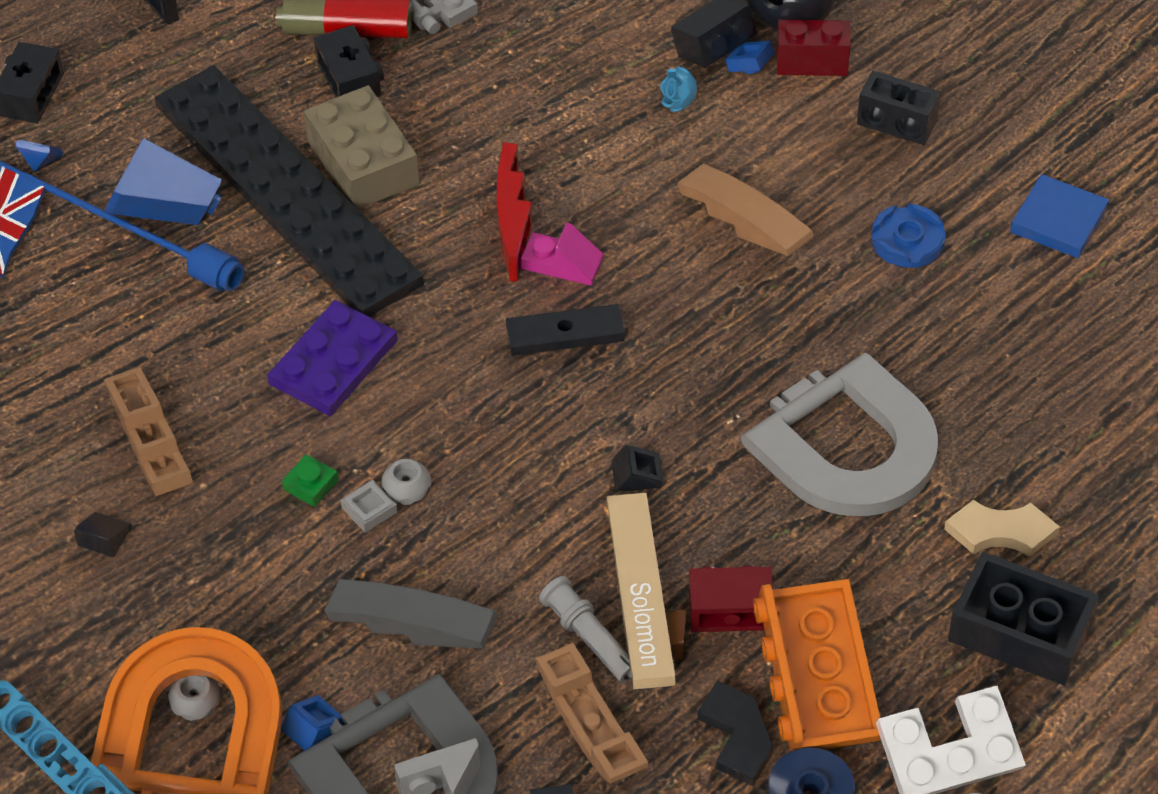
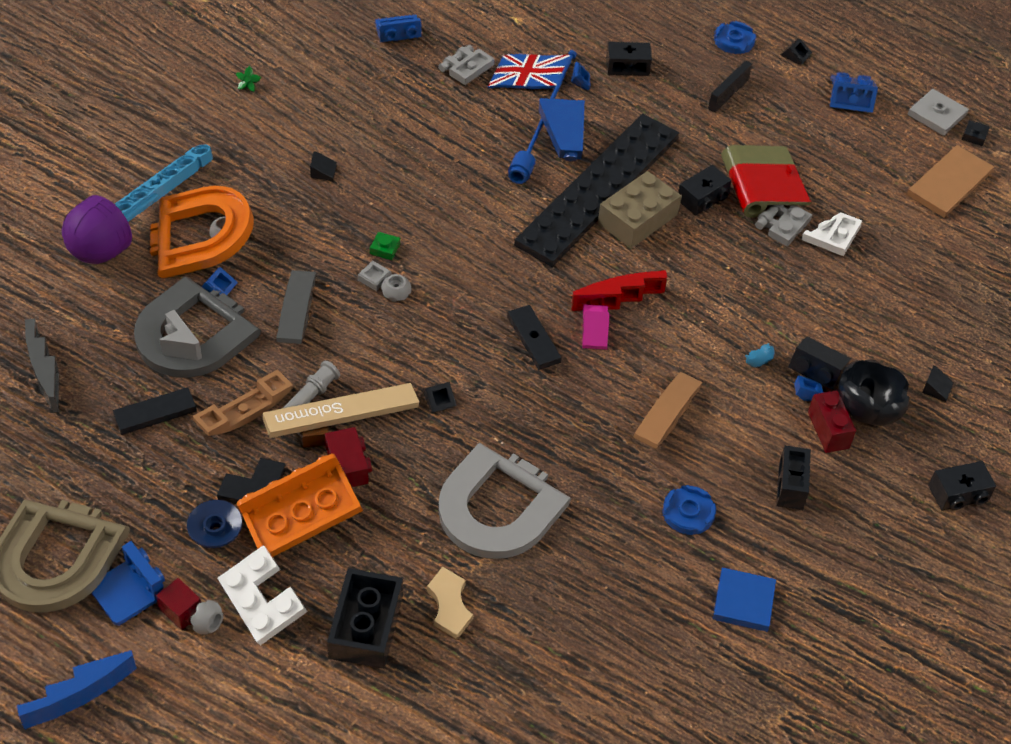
camera: 70 degrees right, 0 degrees up
(148, 431) = (398, 168): medium nougat slope -> none
(332, 358) = (478, 236): dark purple plate -> none

